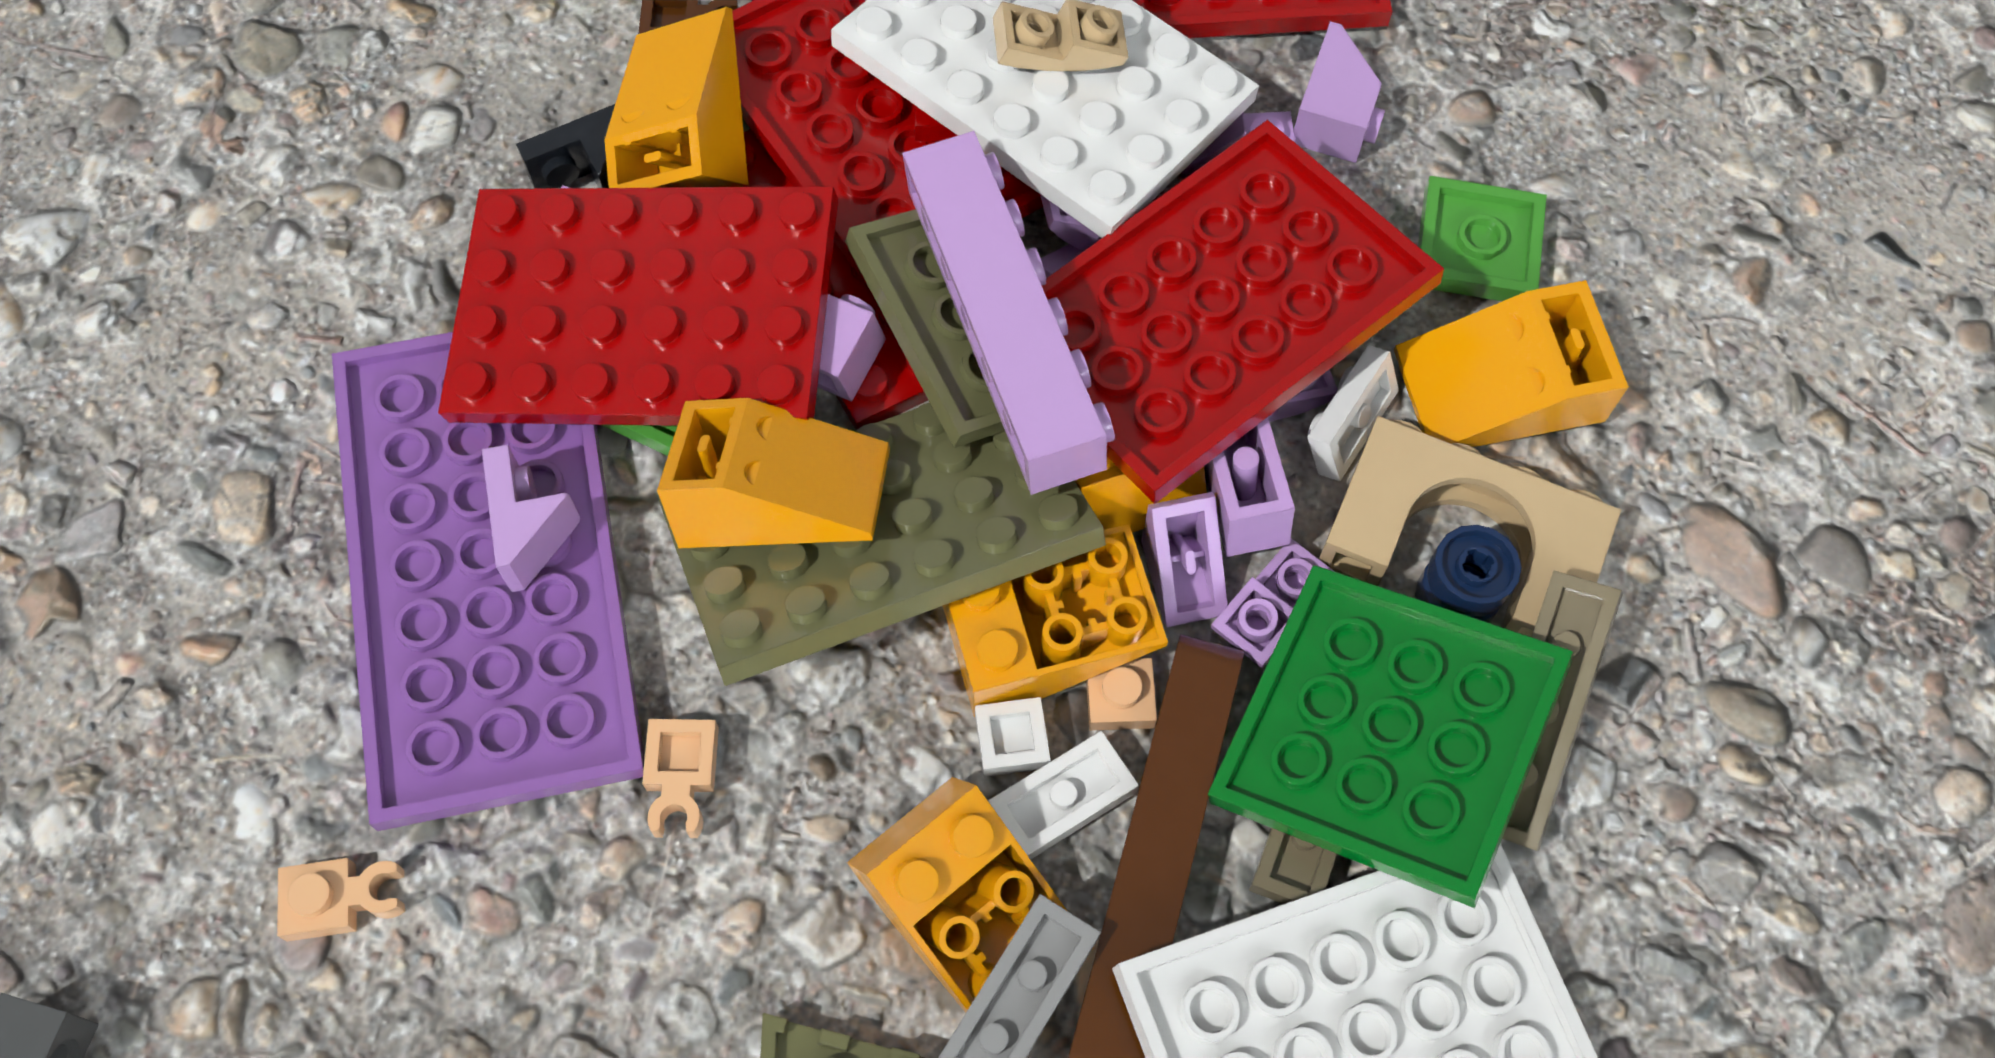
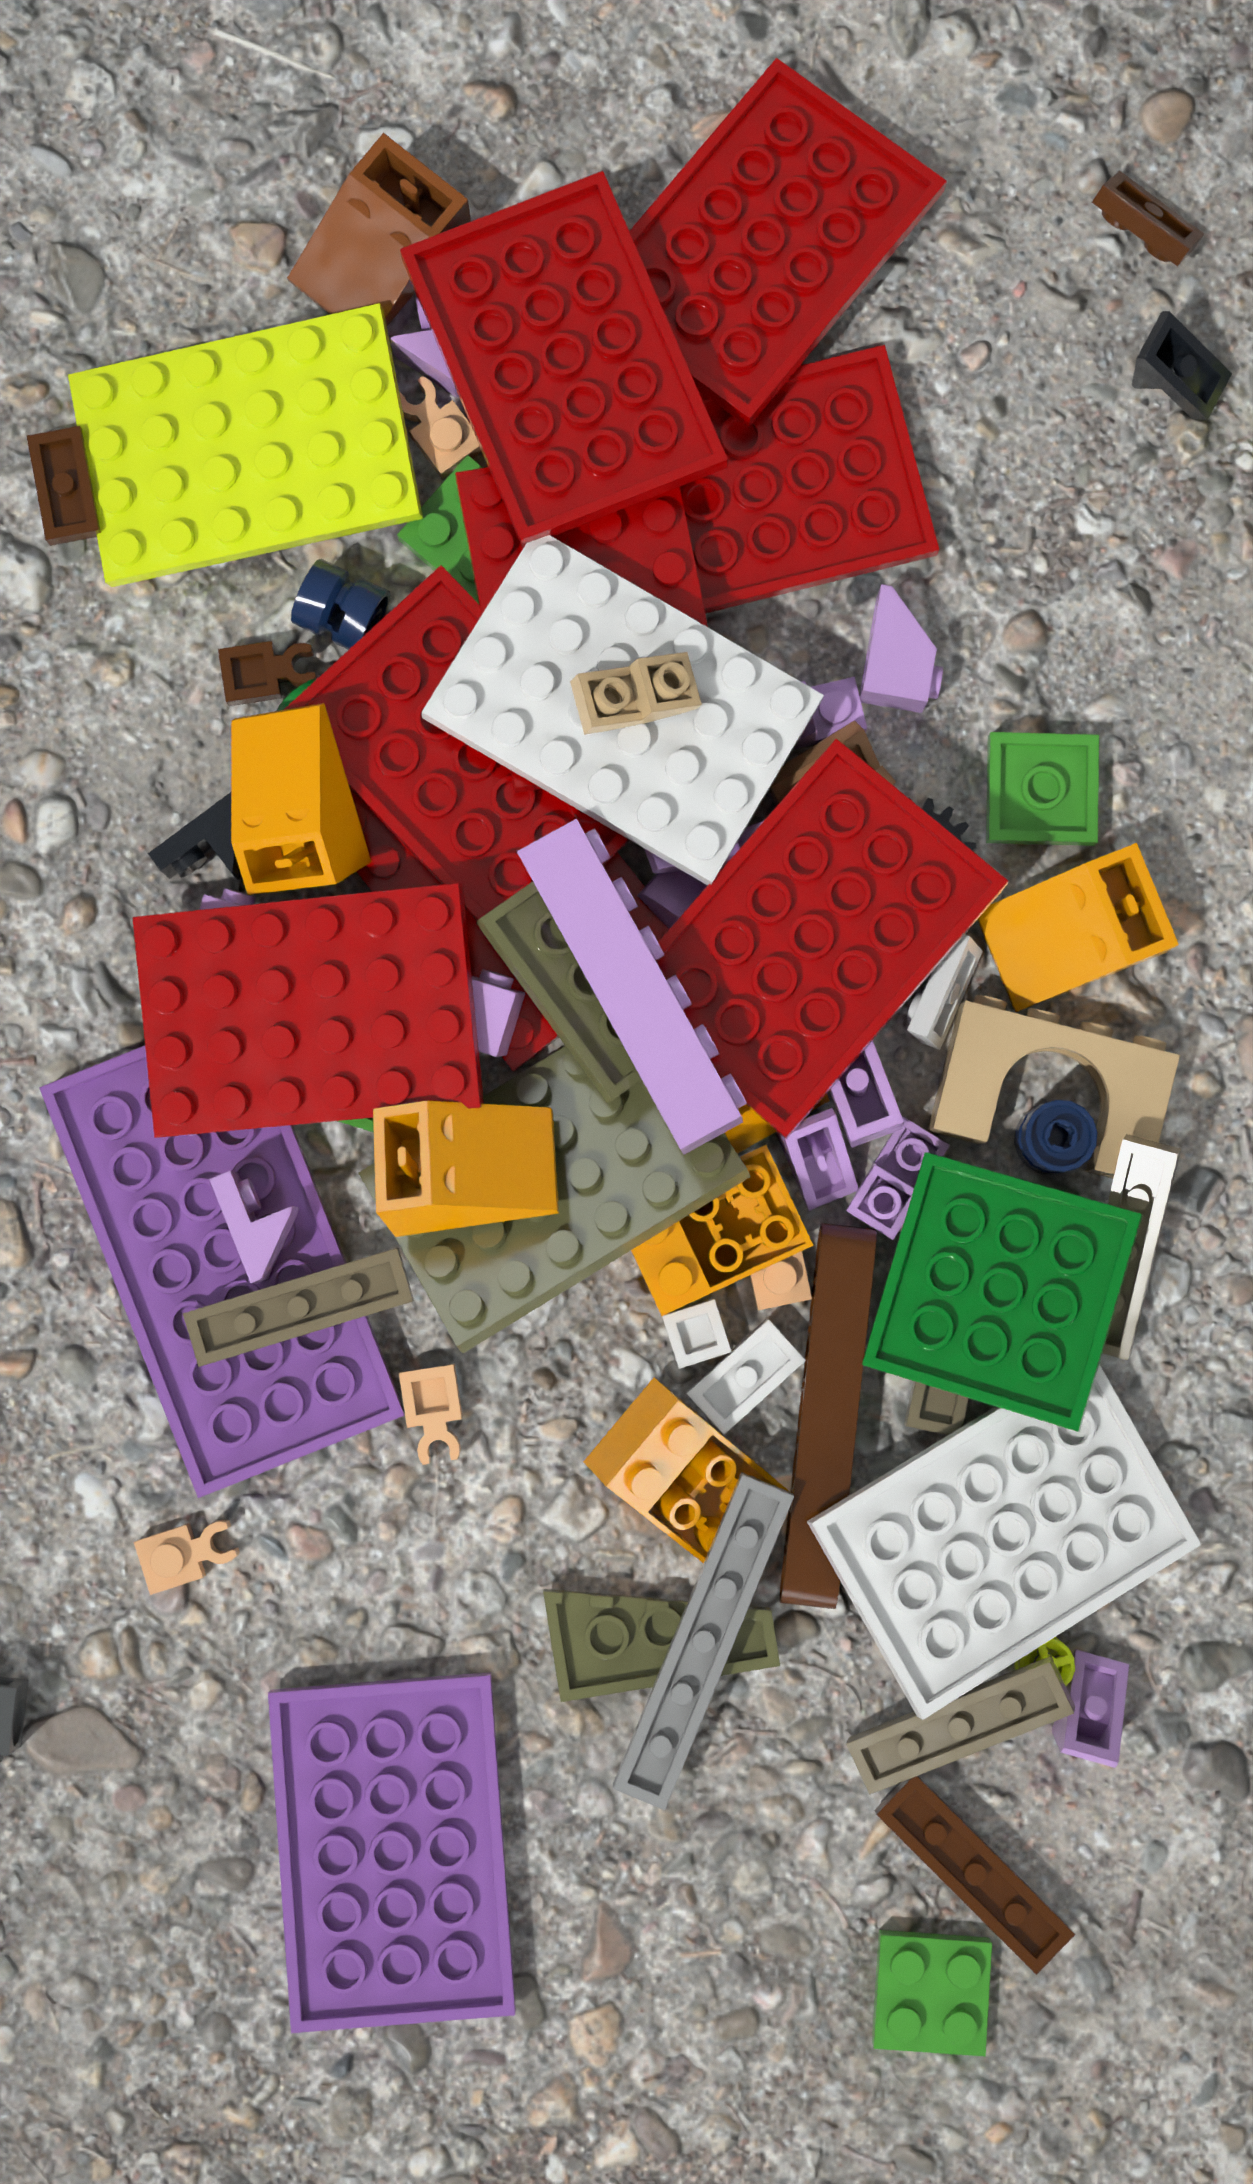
camera: 10 degrees left, 20 degrees up
(547, 617) = (298, 1307): none -> dark tan plate

